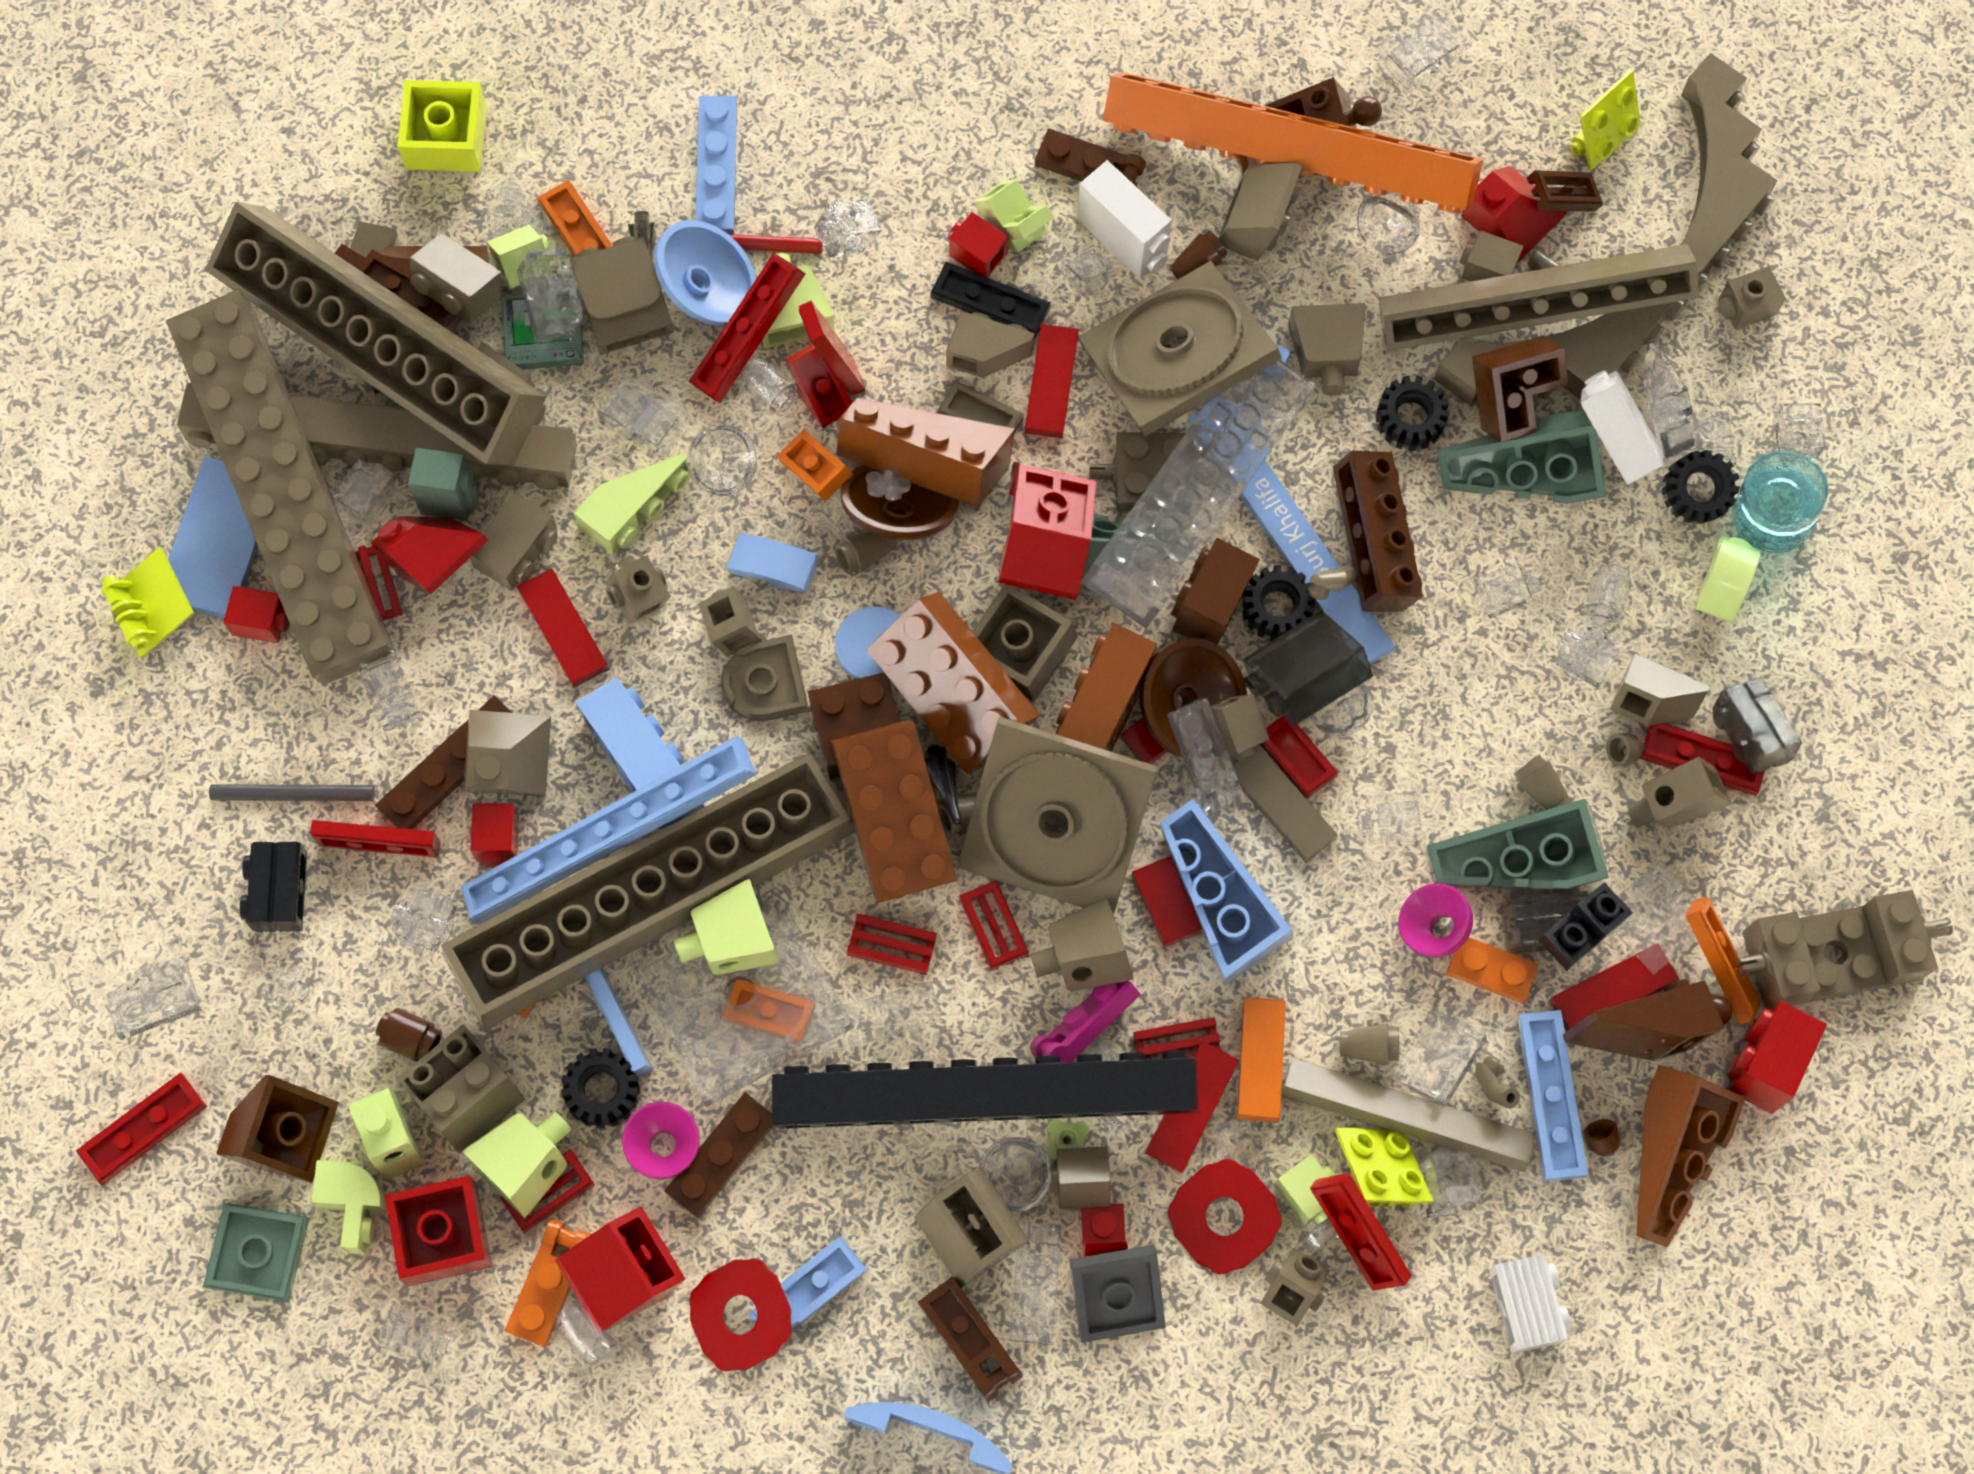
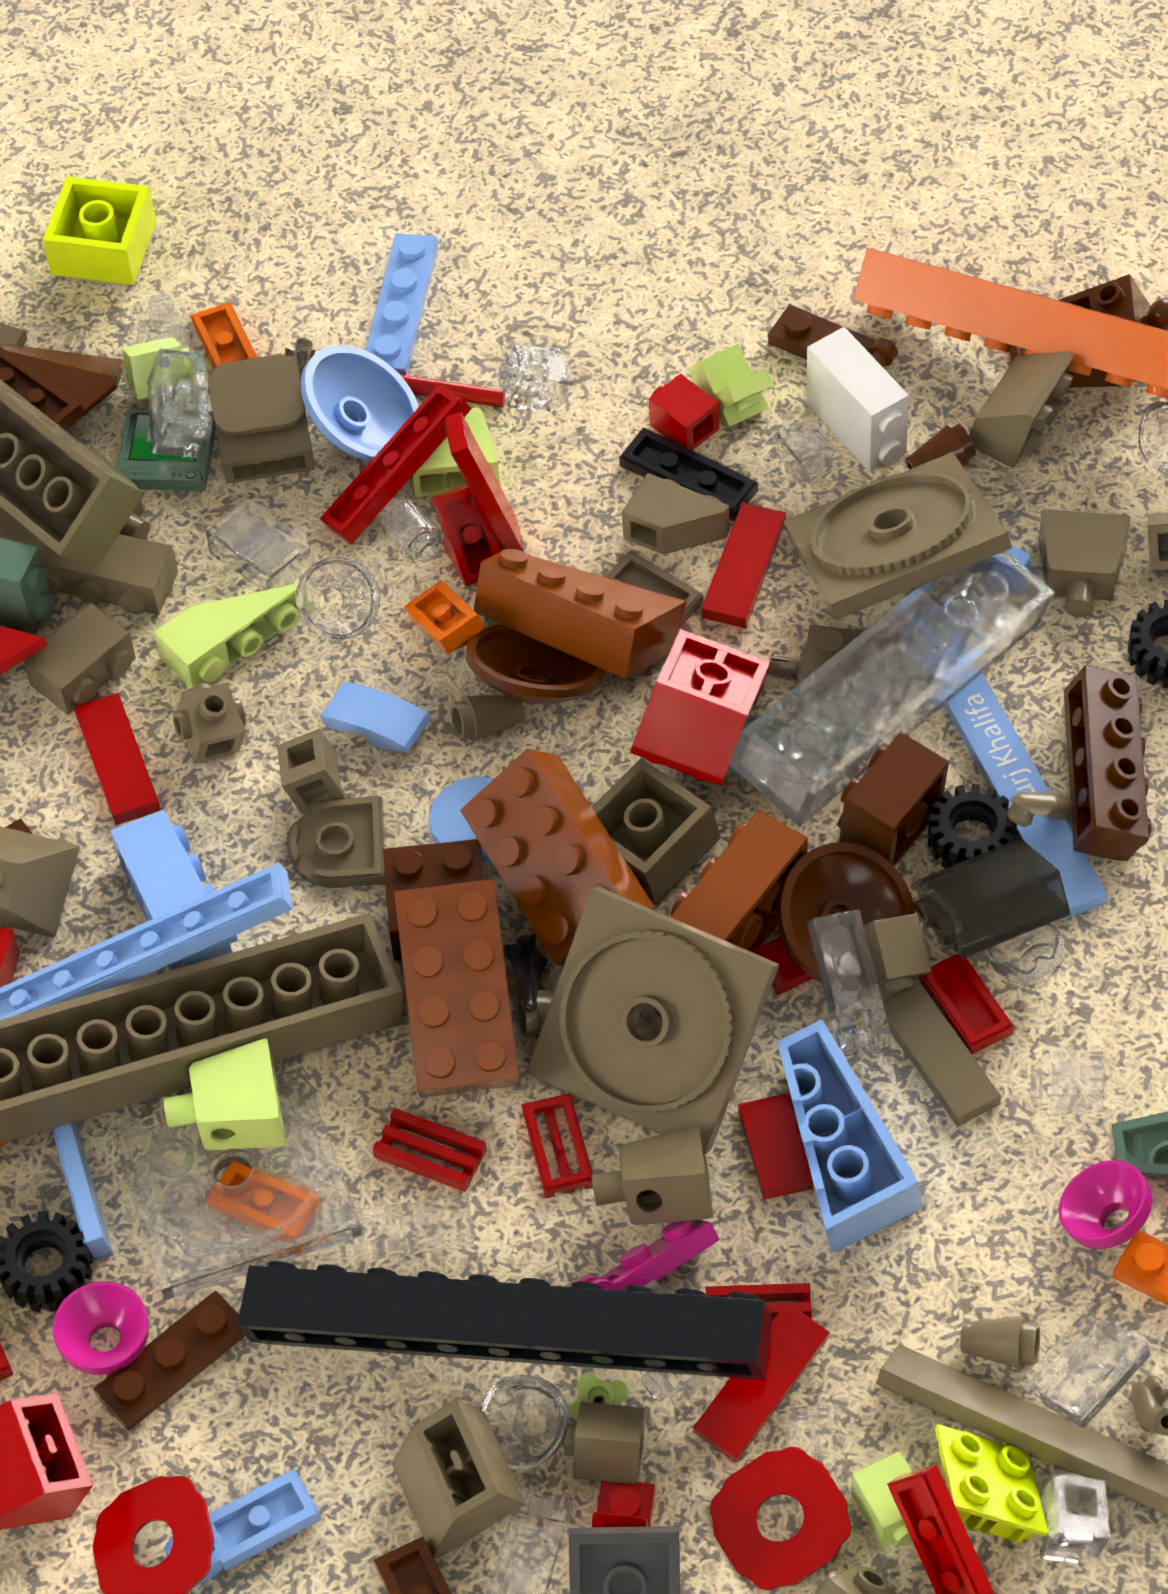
camera: 15 degrees right, 15 degrees down
(455, 278) = (74, 373): brick -> none
(888, 484) = (526, 642): clear plant -> none
(1261, 1060) = (859, 1340): orange tile -> none
(1320, 1238) = (897, 1559): clear tile -> none

